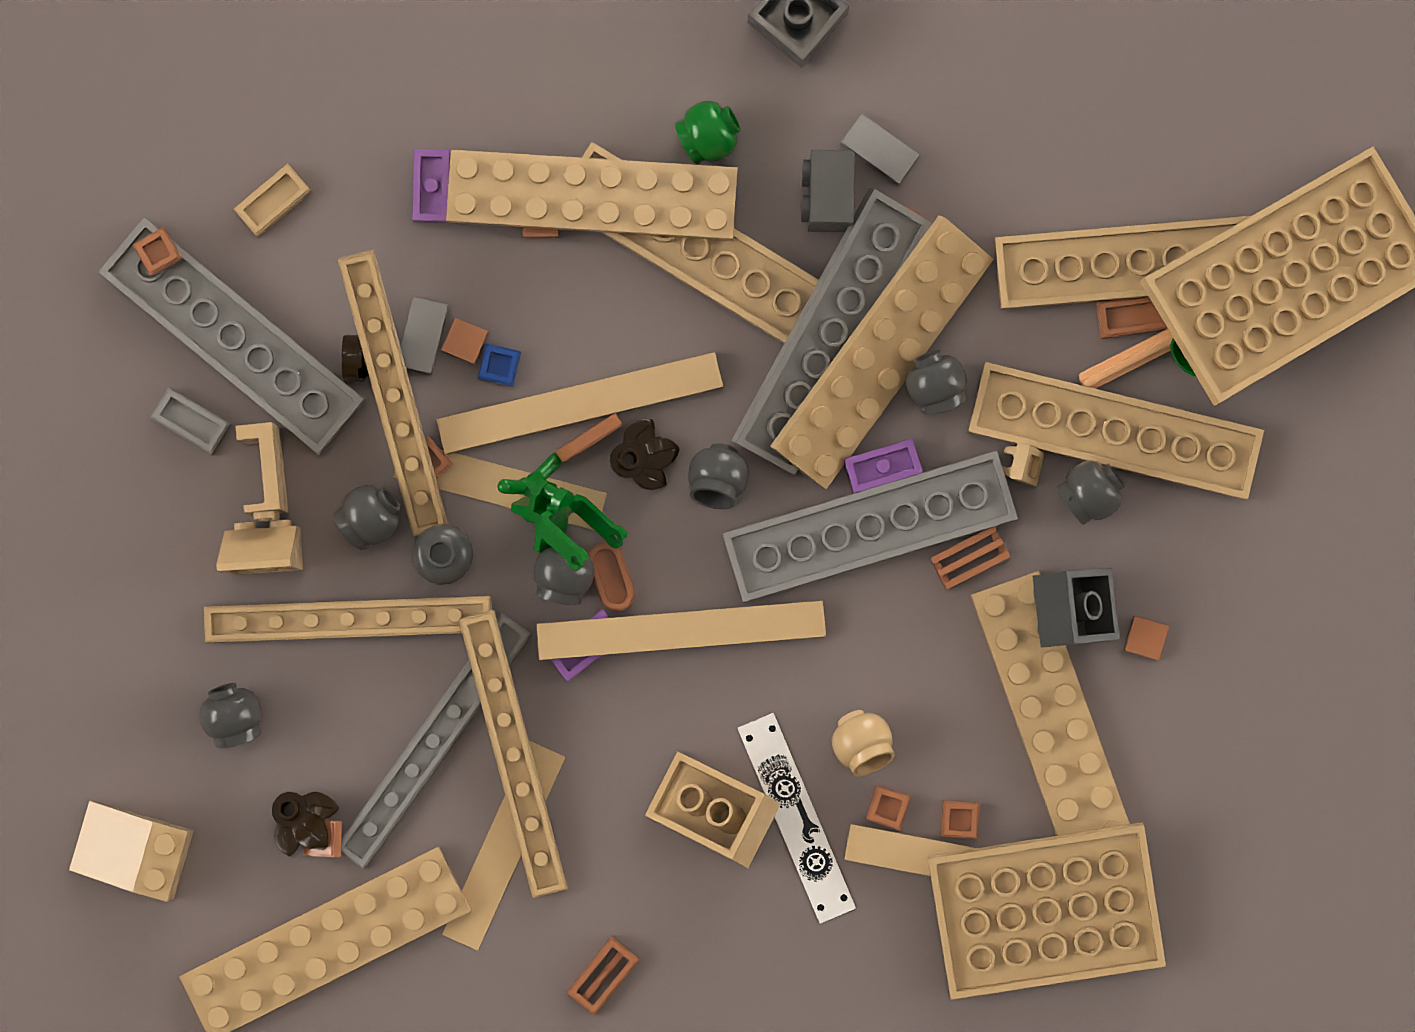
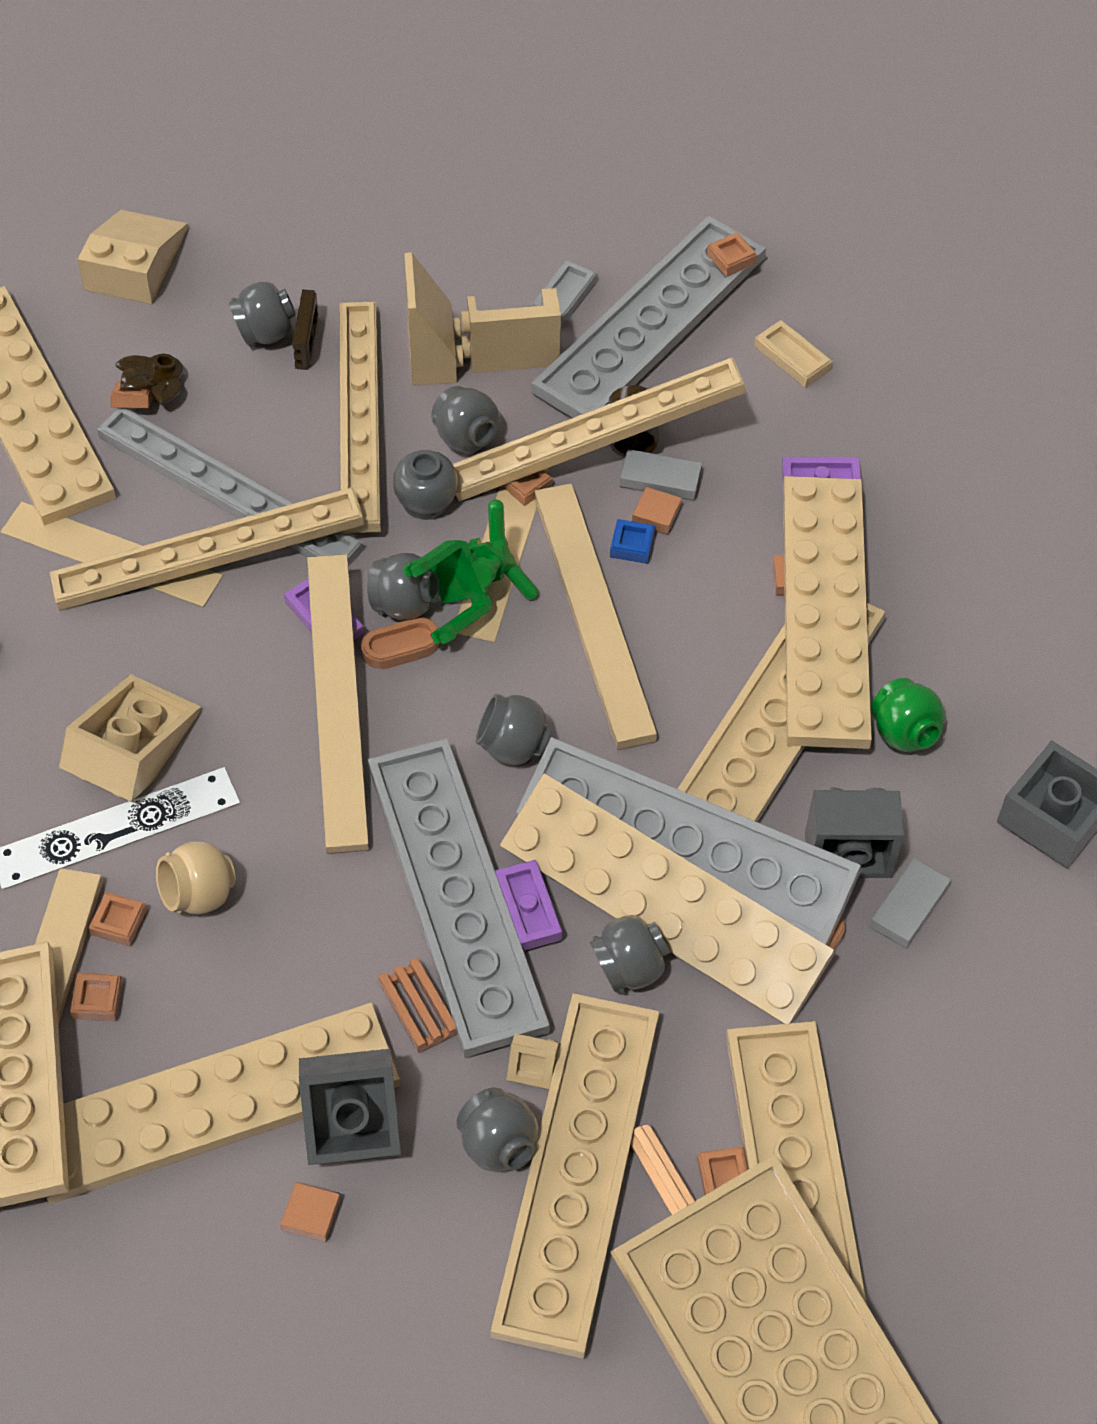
camera: 90 degrees right, 30 degrees down
(243, 674) = (305, 329): none -> dark brown tile
(589, 437) = (555, 614): nougat tile -> none
(649, 455) = (538, 673): dark brown plate -> none

